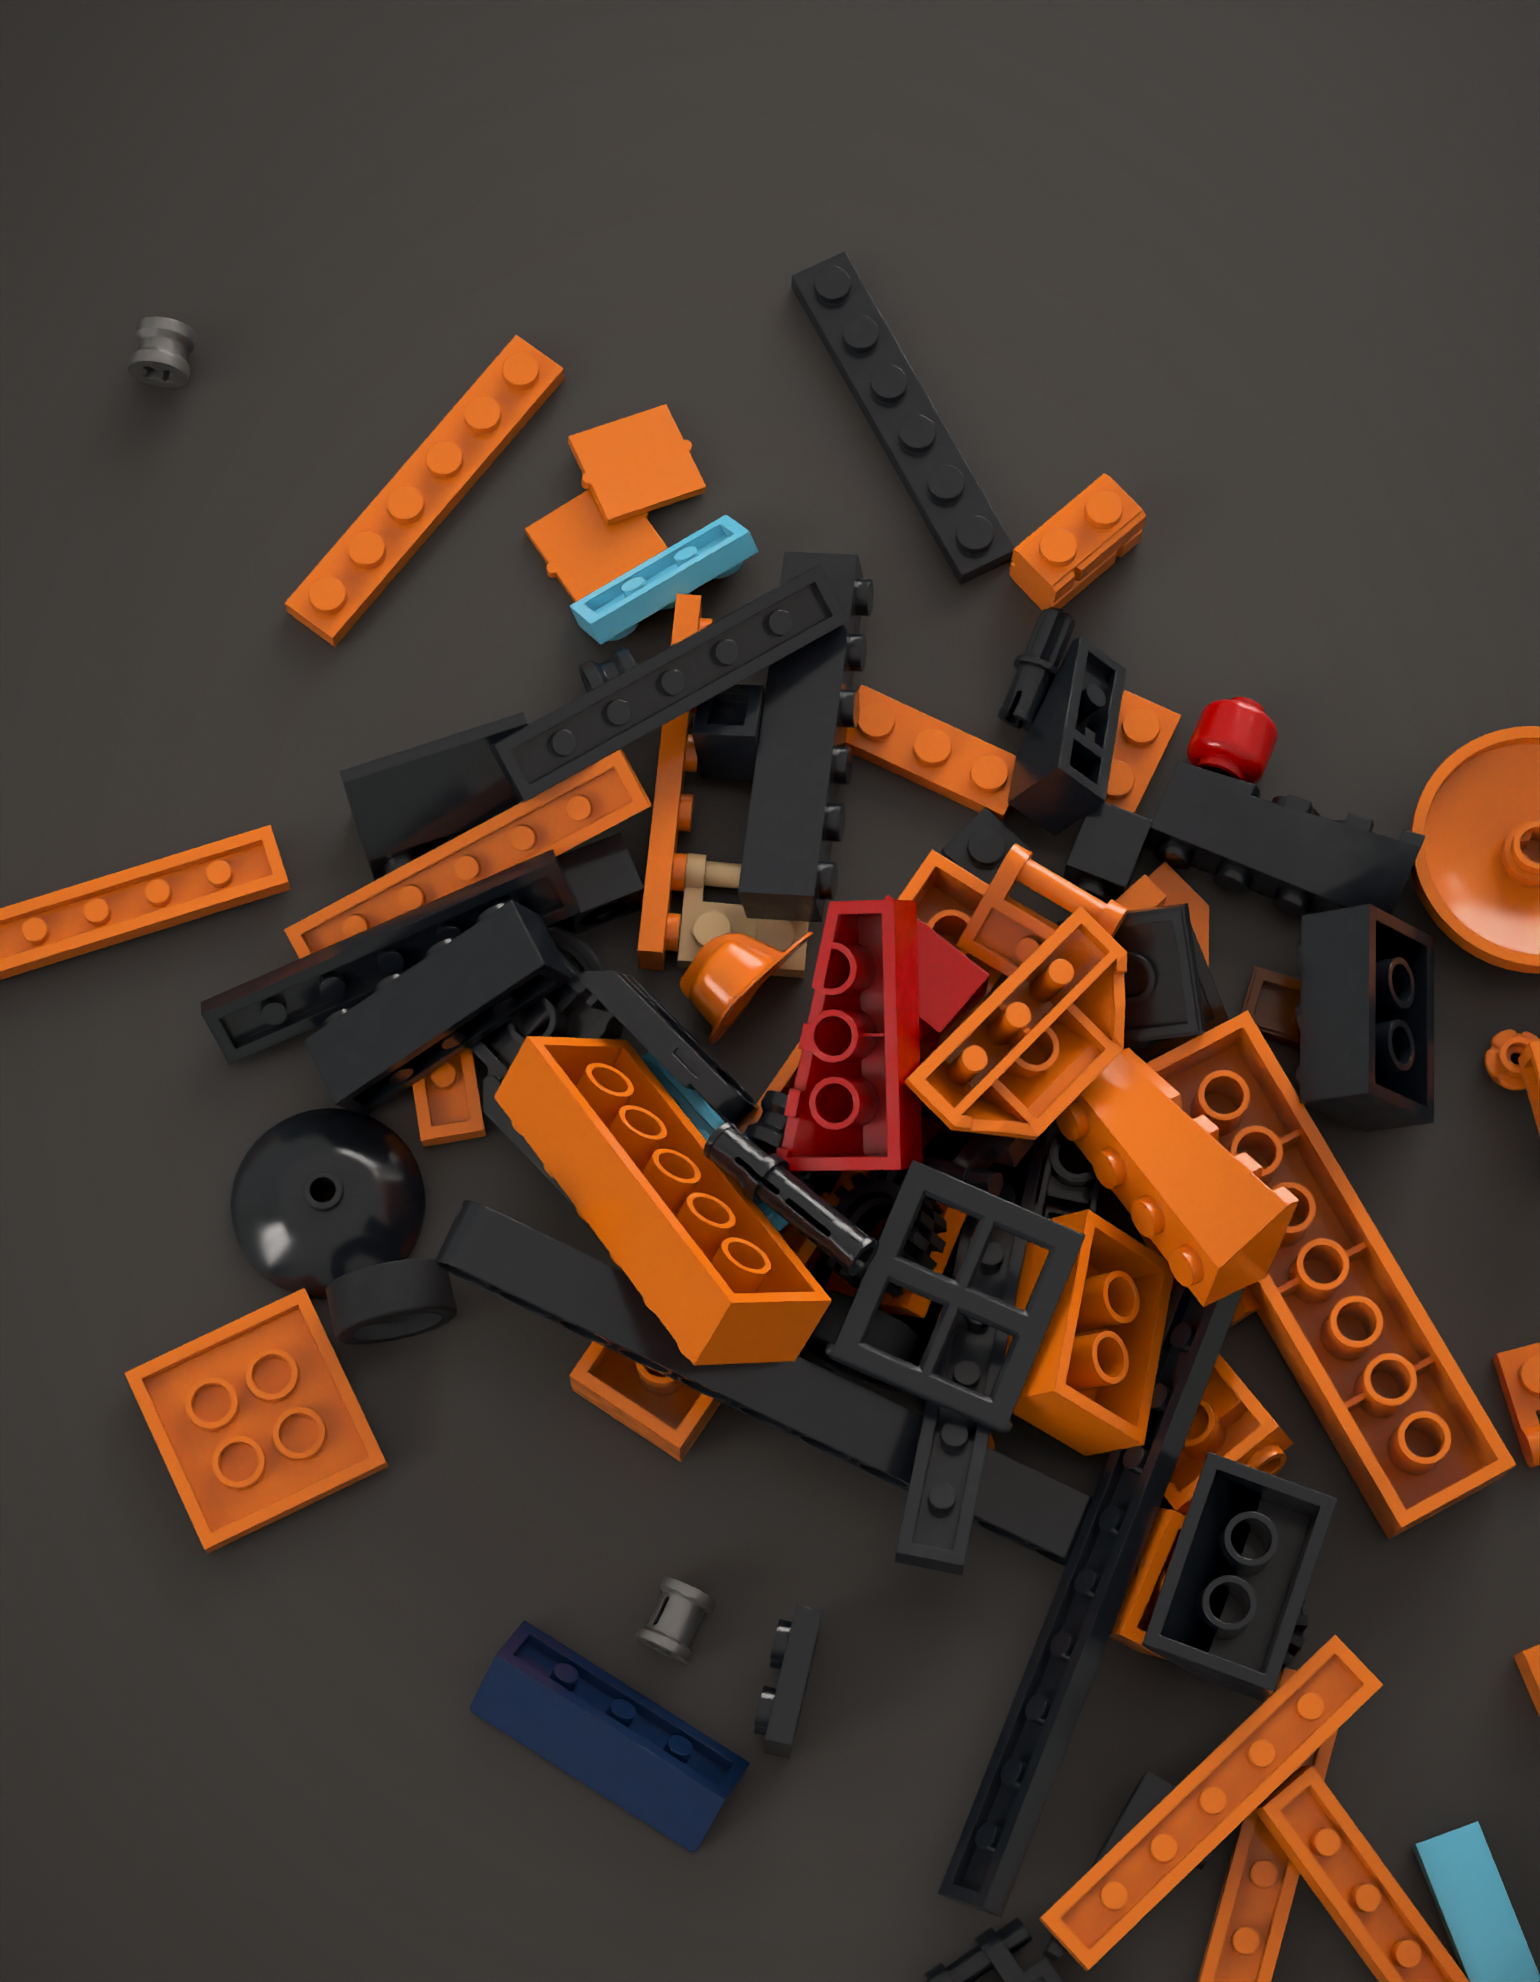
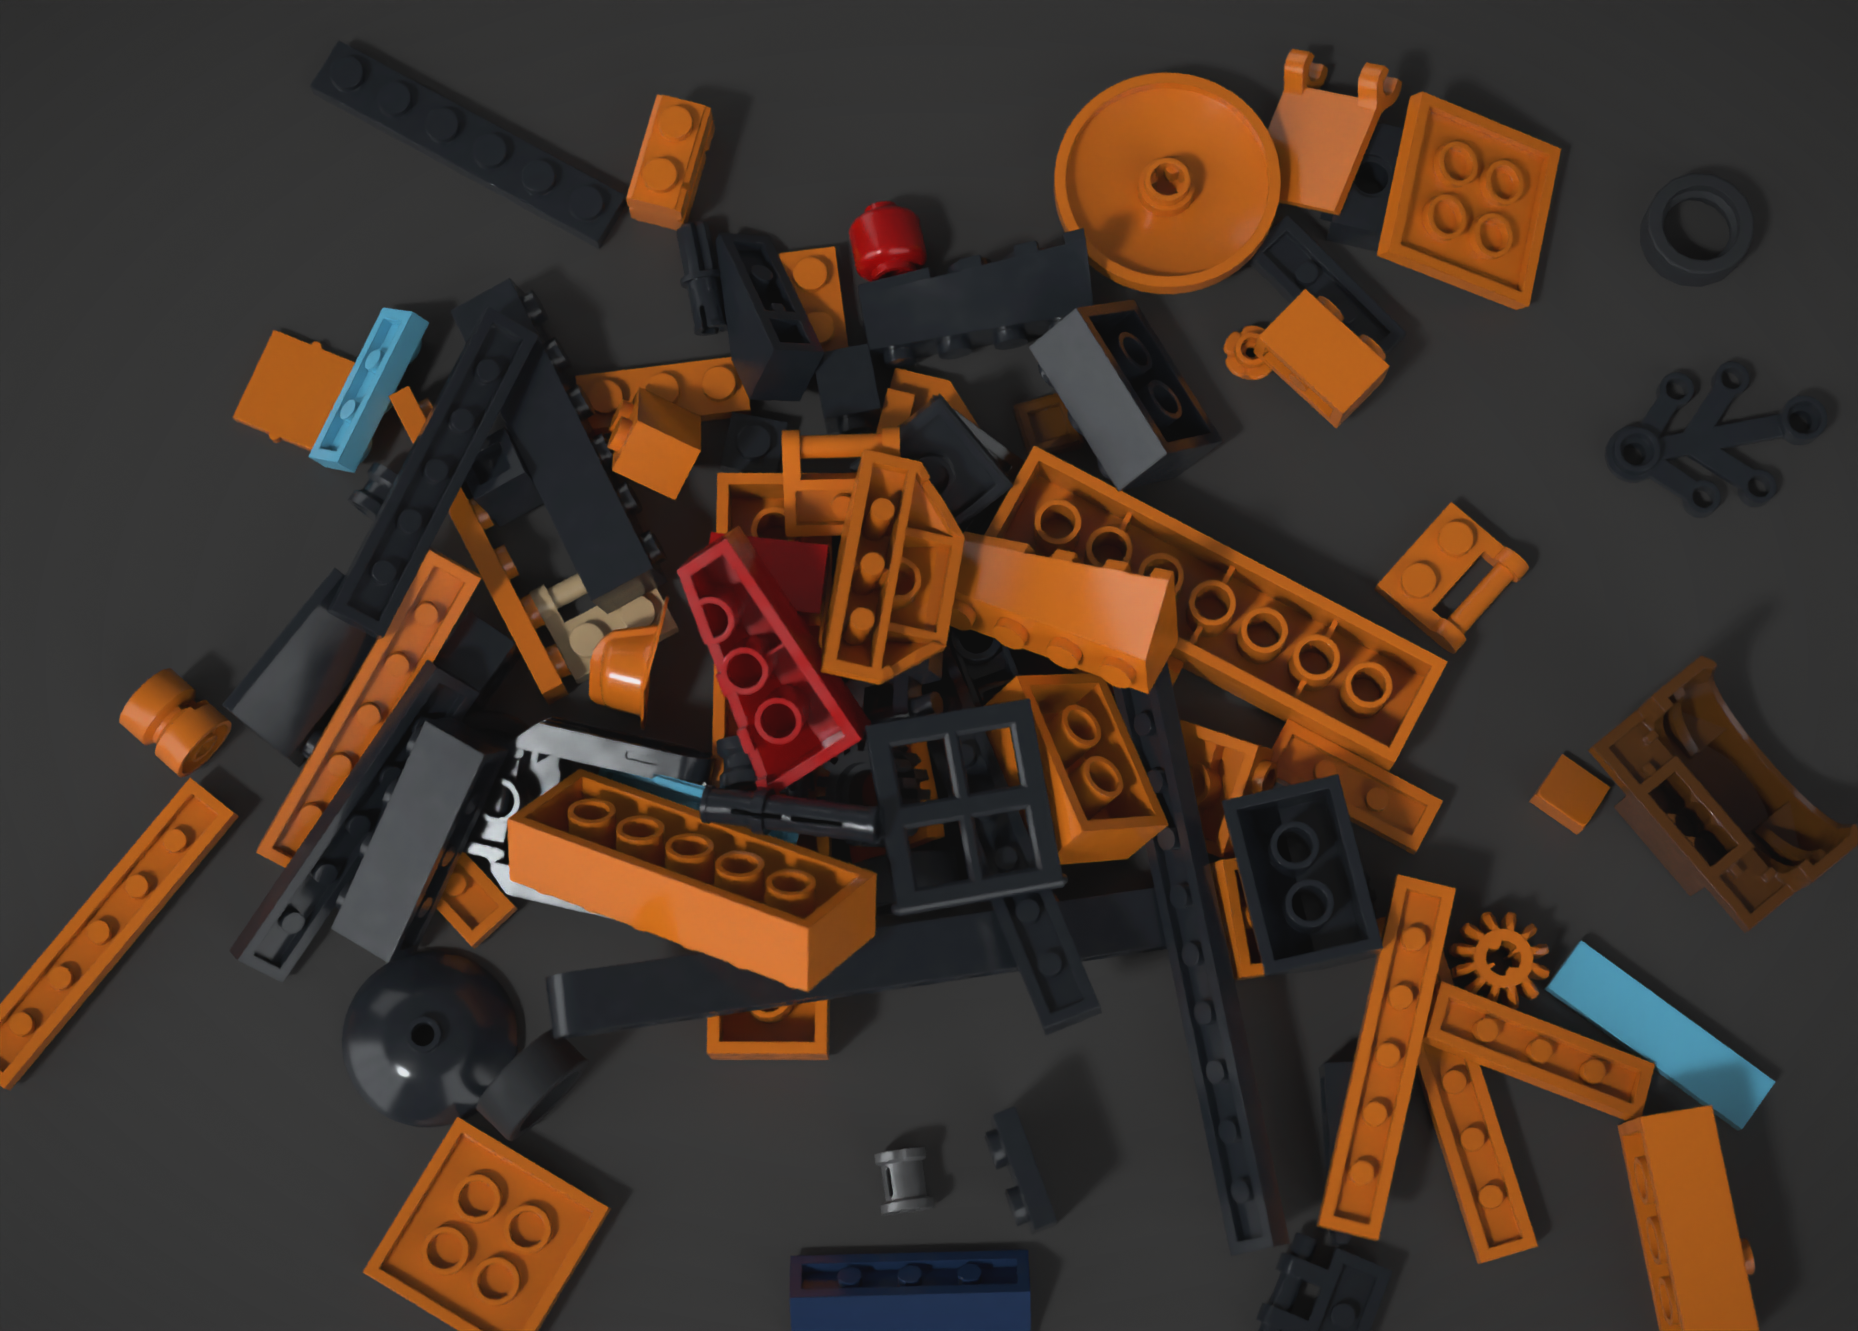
camera: 30 degrees left, 5 degrees up
(287, 757) = (167, 715): none -> orange wheel
(424, 491) = (133, 436): orange plate -> none
(636, 464) = (286, 311): orange piece -> none
(892, 785) = (654, 442): none -> orange brick
(1357, 1540) = (1372, 795): none -> orange plate
(1379, 1764) = (1520, 952): none -> orange gear

